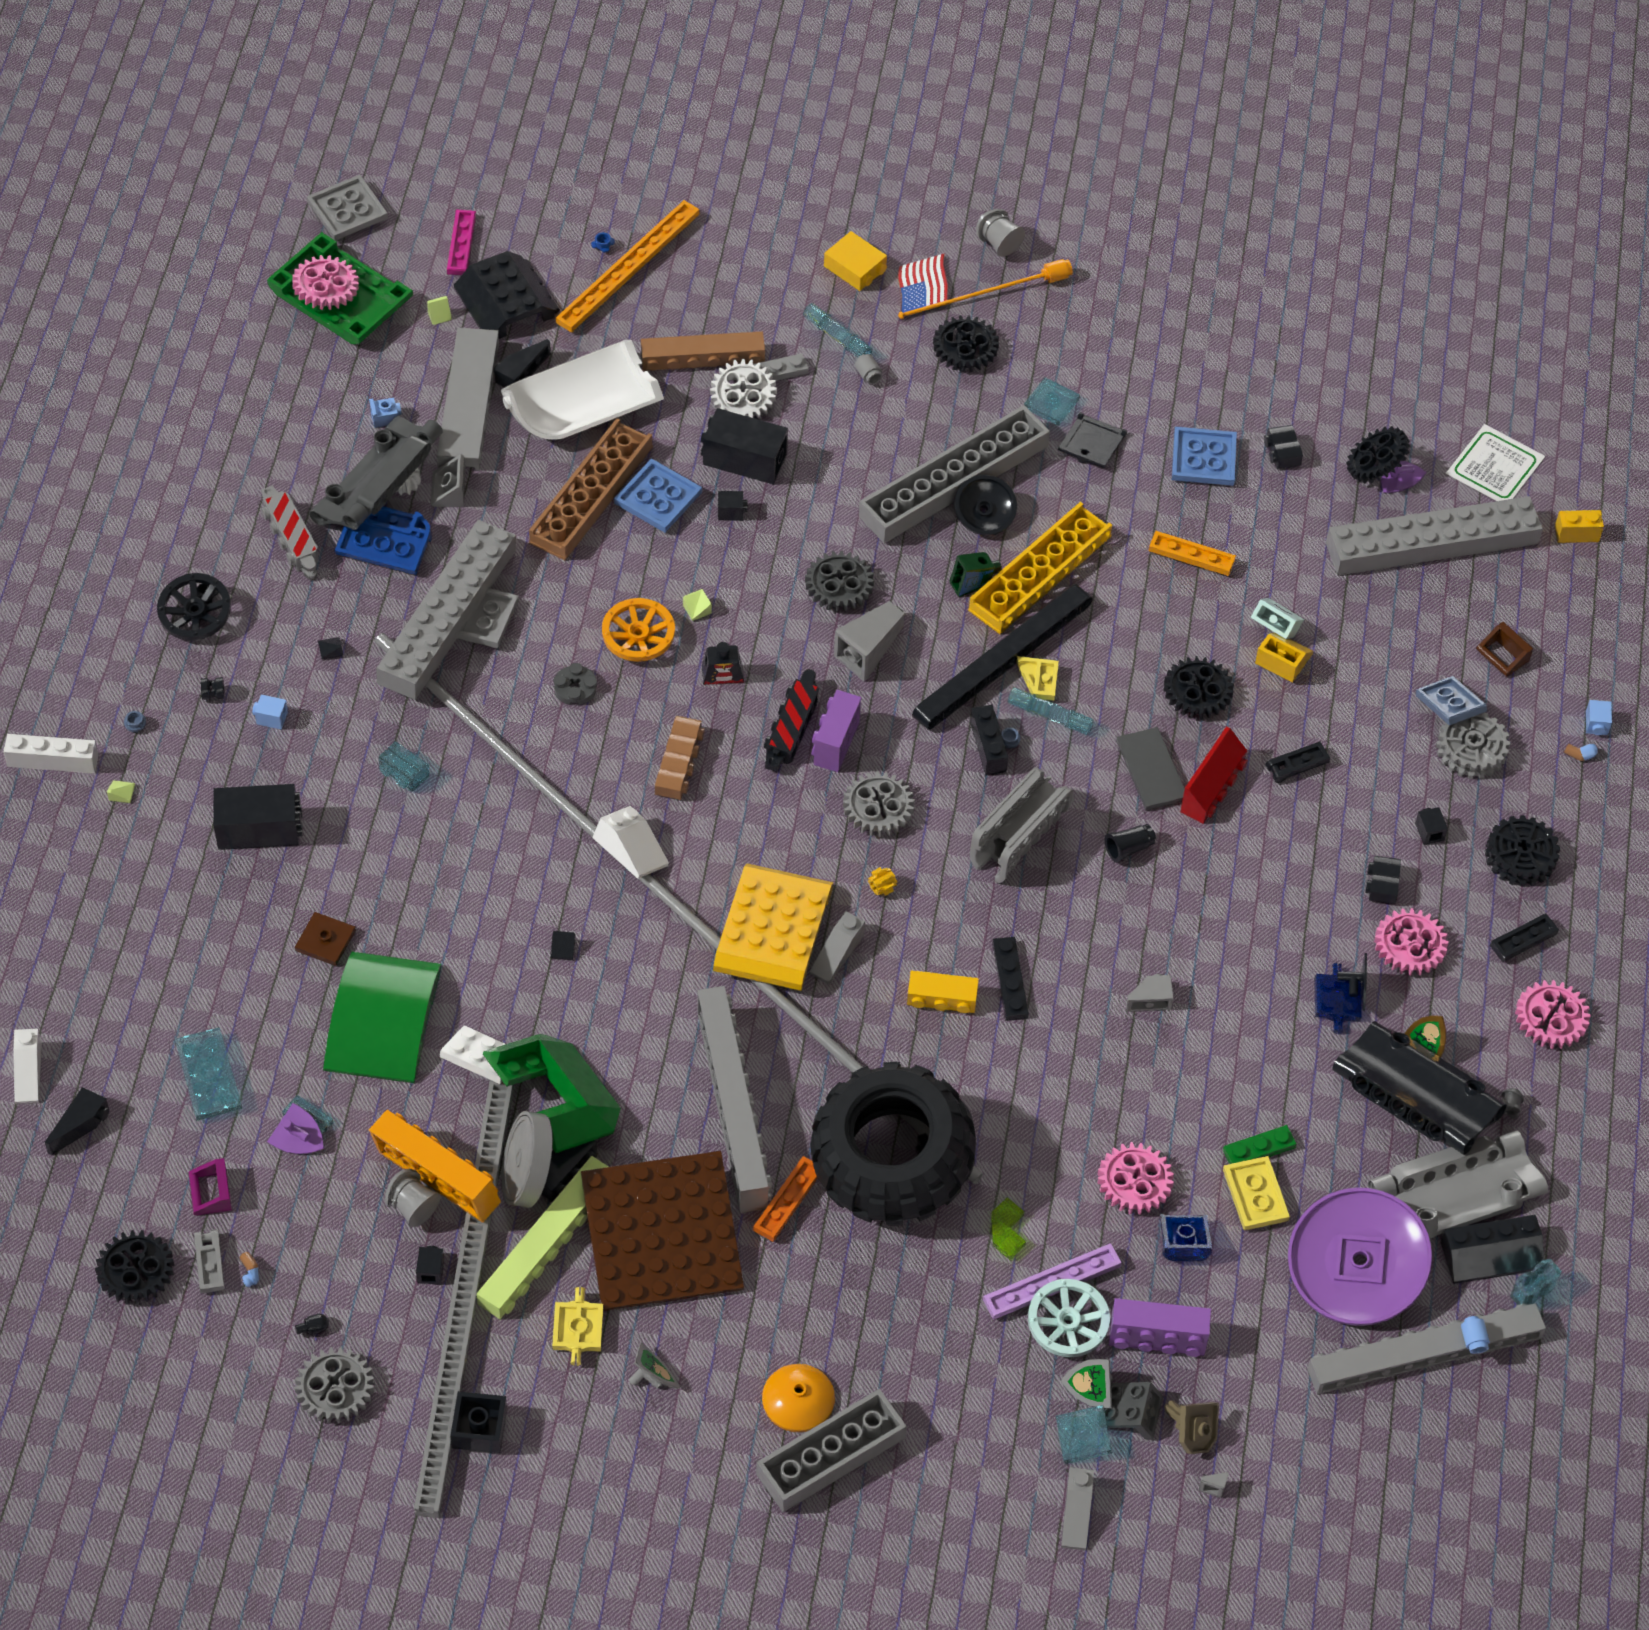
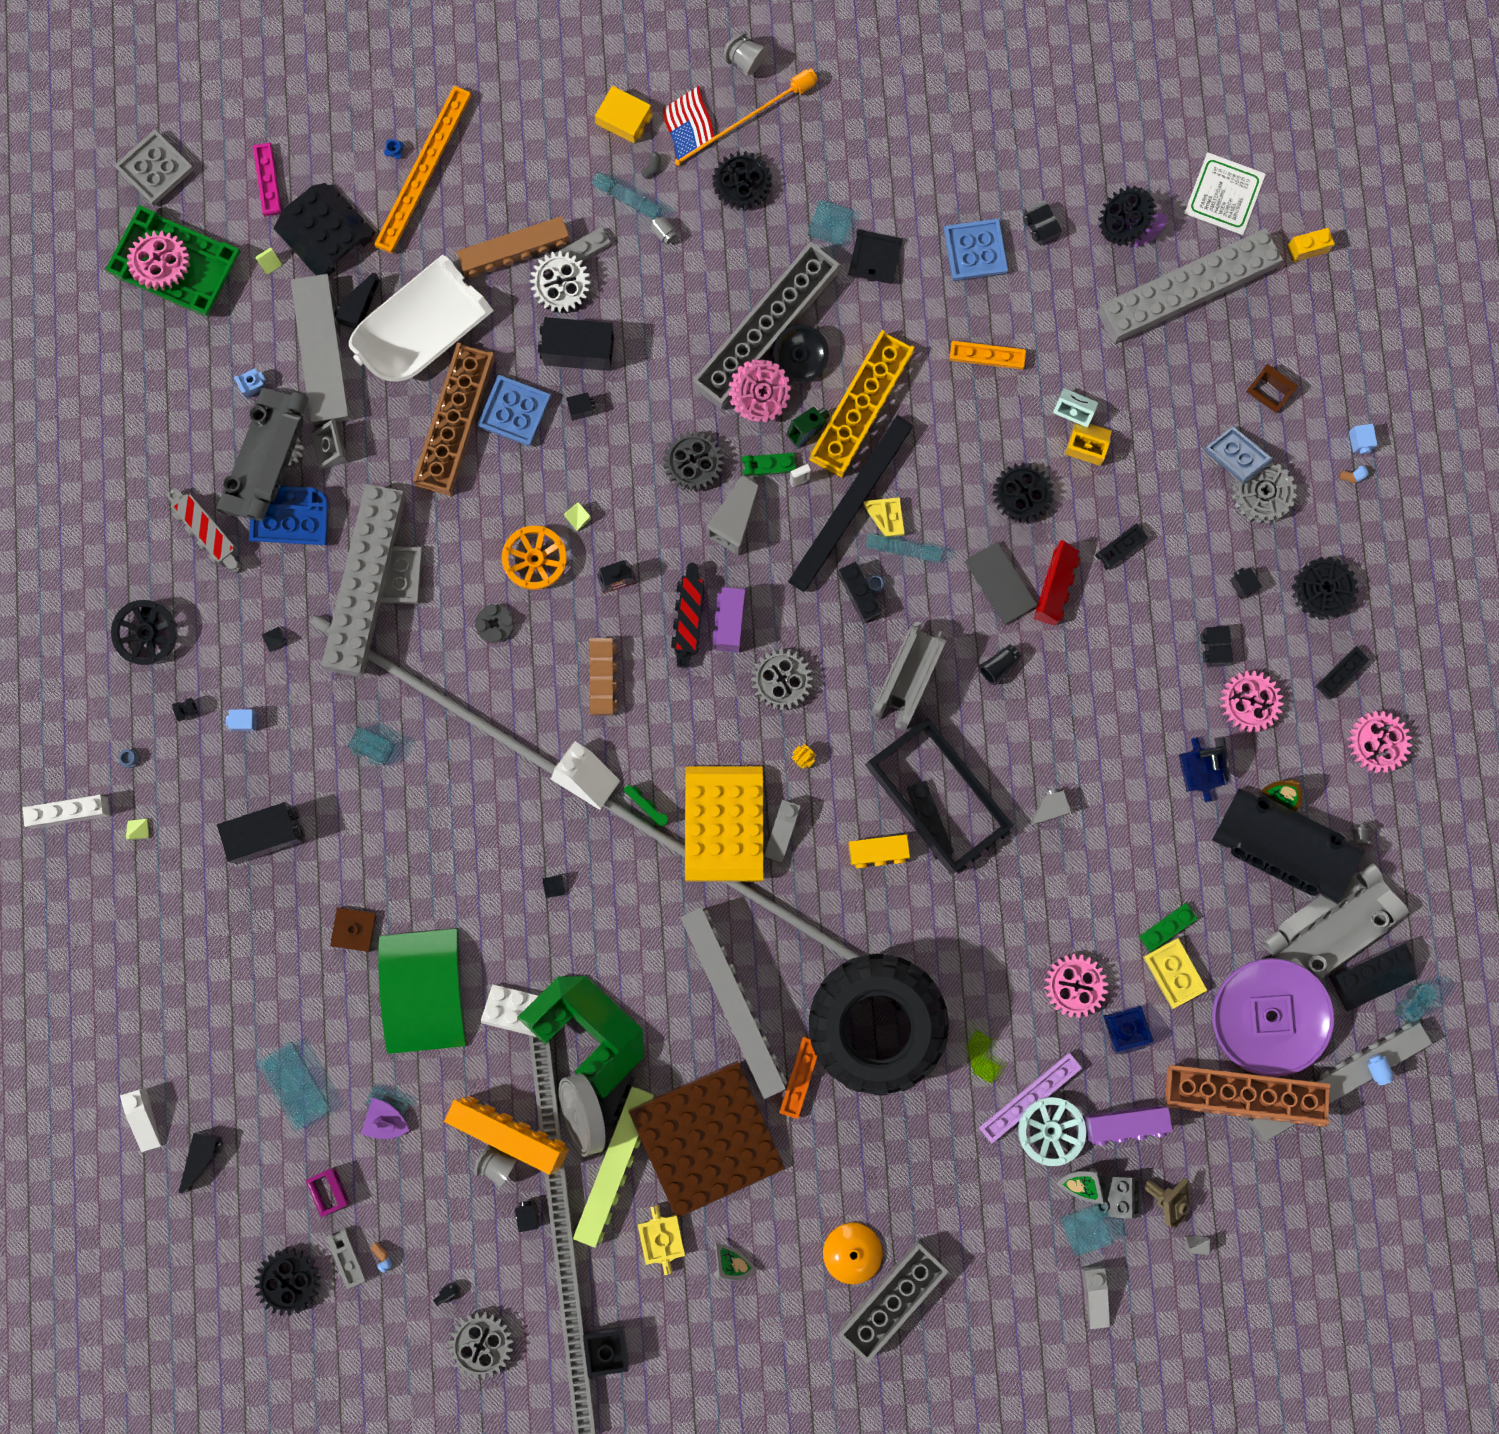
camera: 15 degrees left, 25 degrees up
(690, 890) = (647, 806): none -> green plate
(875, 312) = (654, 165): none -> dark grey arm
(923, 603) = (769, 464): none -> green plate
(945, 523) = (746, 386): none -> bright pink piece
(953, 614) = (800, 475): none -> white tile
(1010, 886) = (974, 854): none -> black door
(1311, 1328) = (1247, 1095): none -> nougat tile

